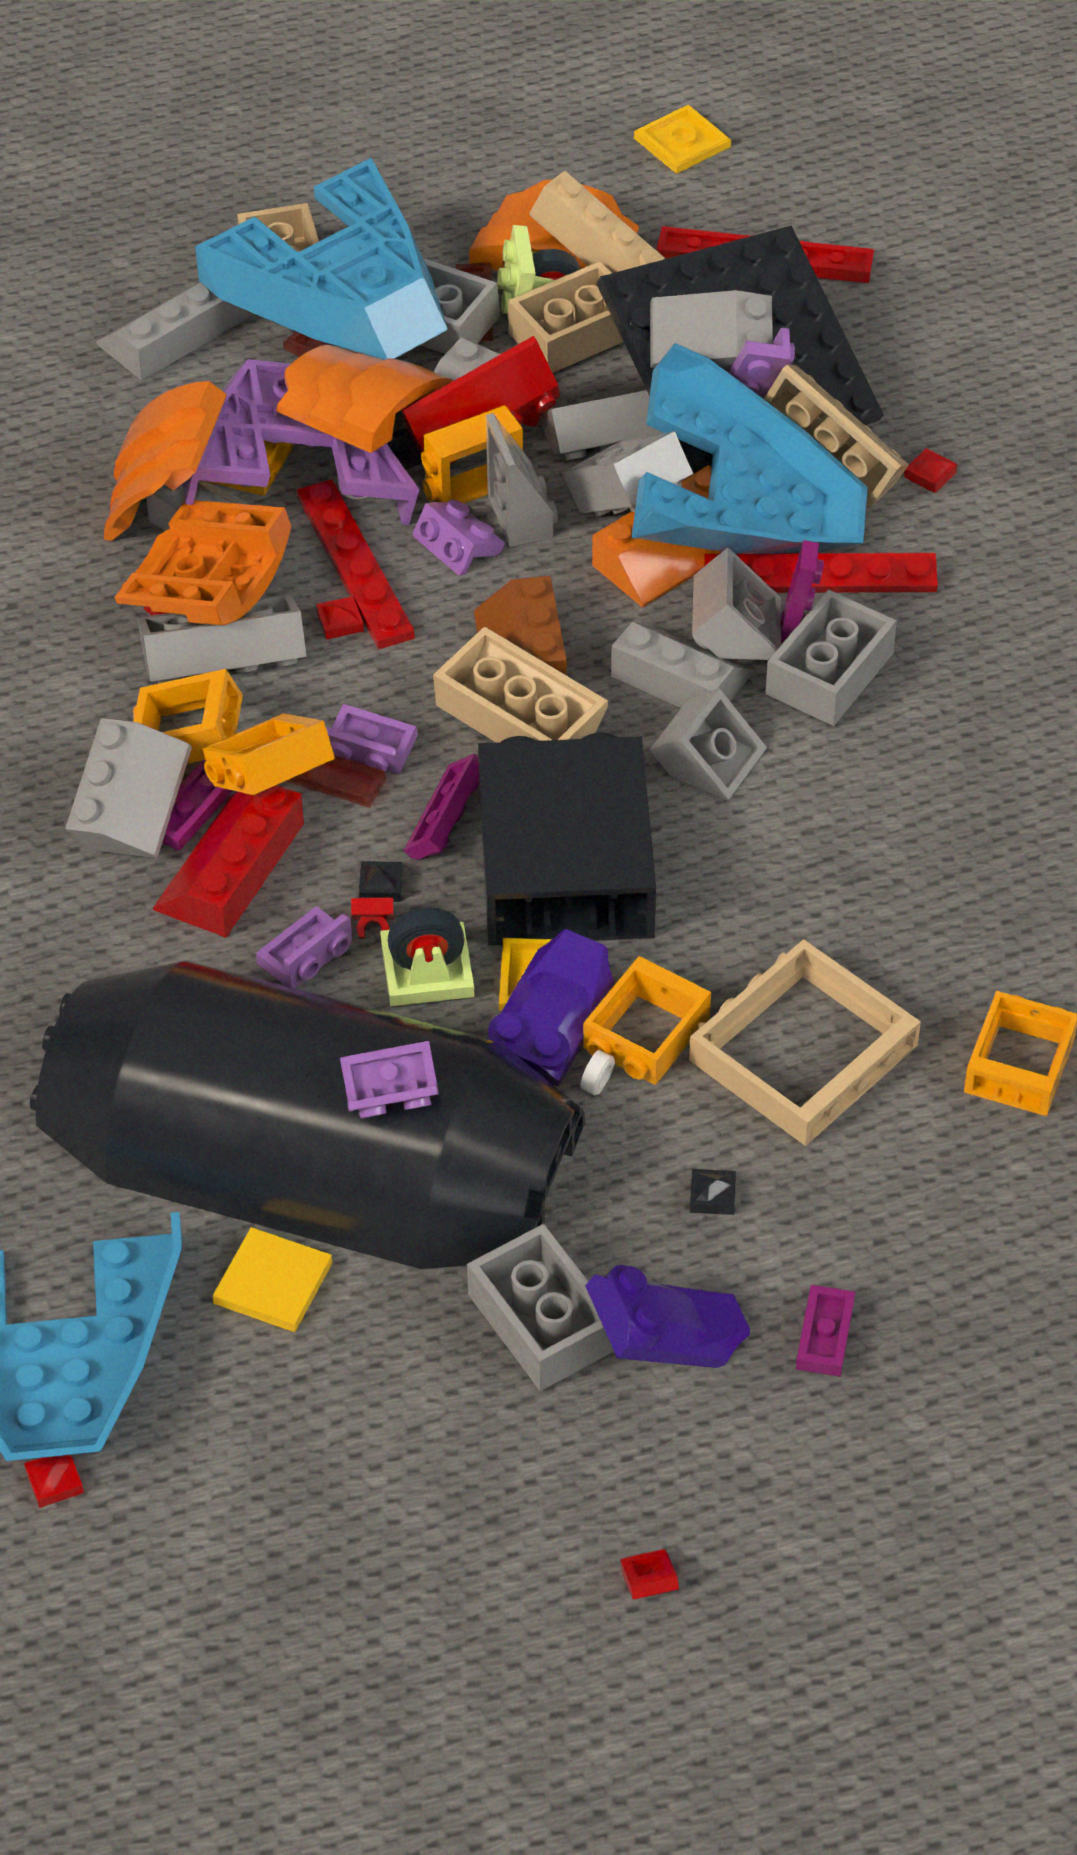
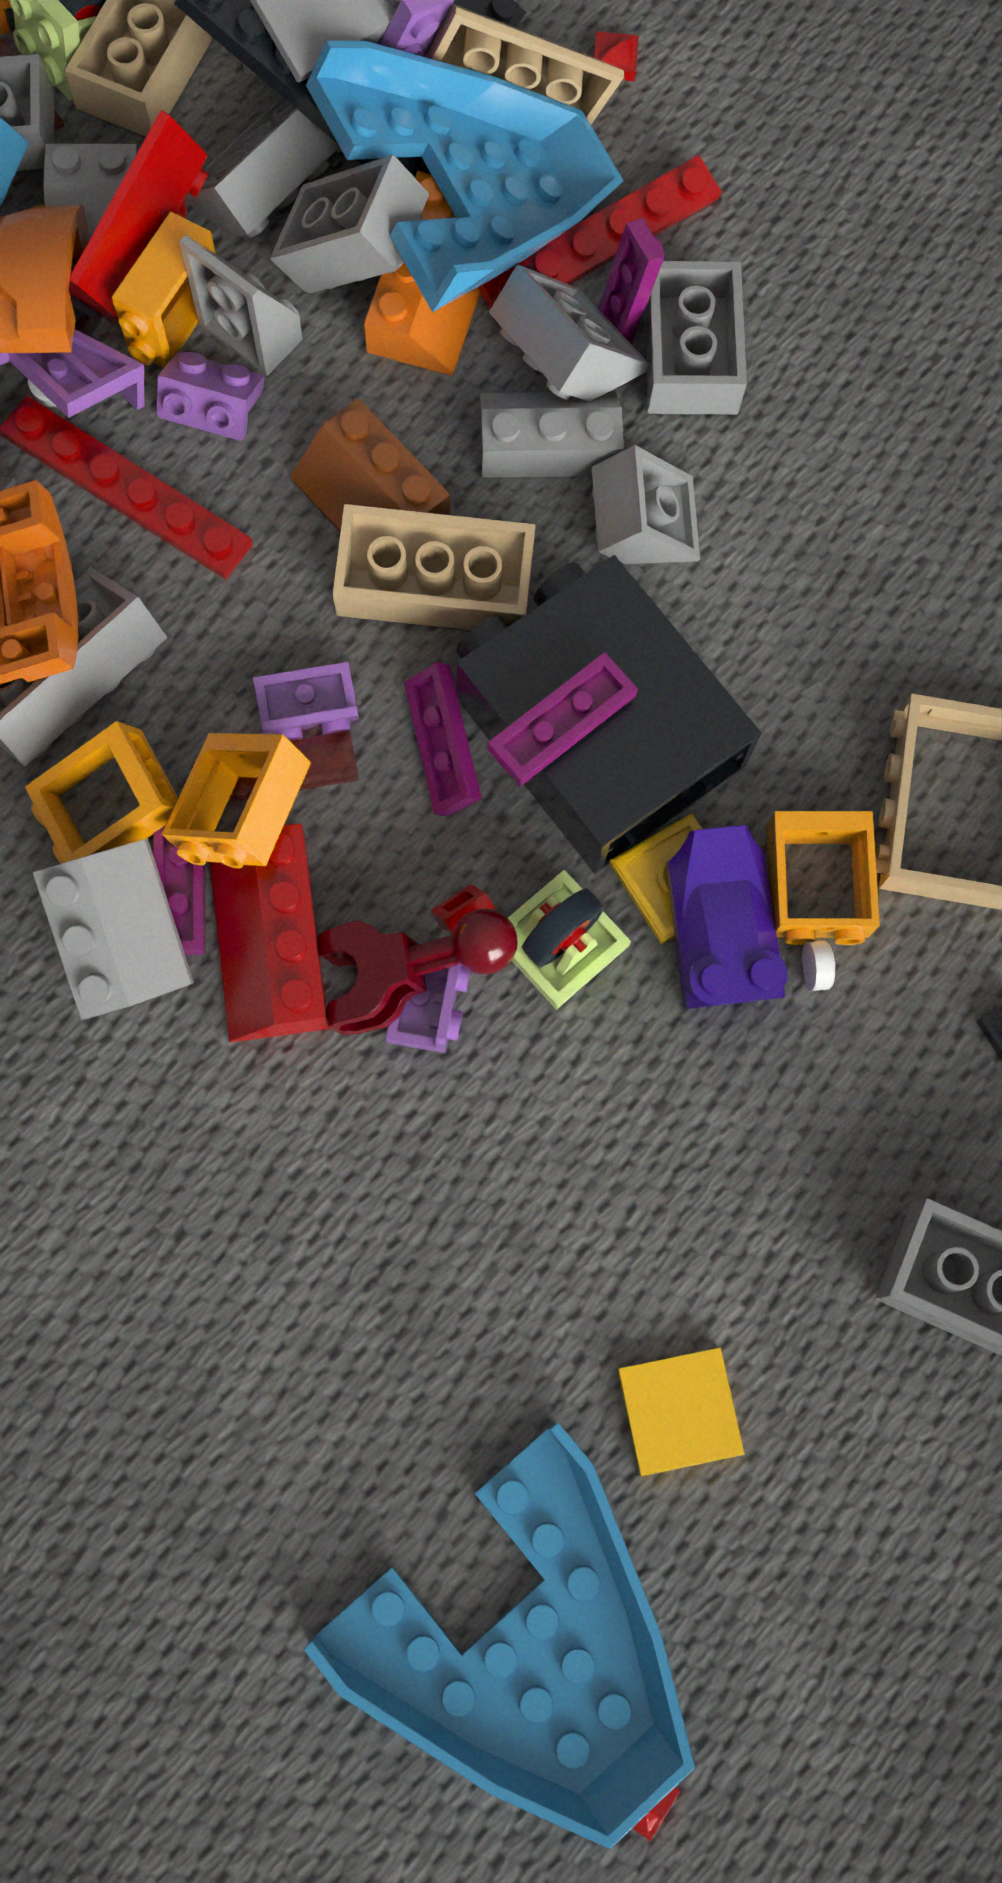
camera: 40 degrees left, 25 degrees up
(240, 1108) = (576, 1202): black cylinder -> none
(292, 906) = (395, 965): none -> dark red piece
(339, 617) = (159, 564): red tile -> none
(381, 880) = (438, 865): black tile -> none
(389, 1077) = (725, 1178): medium lavender bracket -> none
(518, 803) = (562, 719): none -> magenta plate

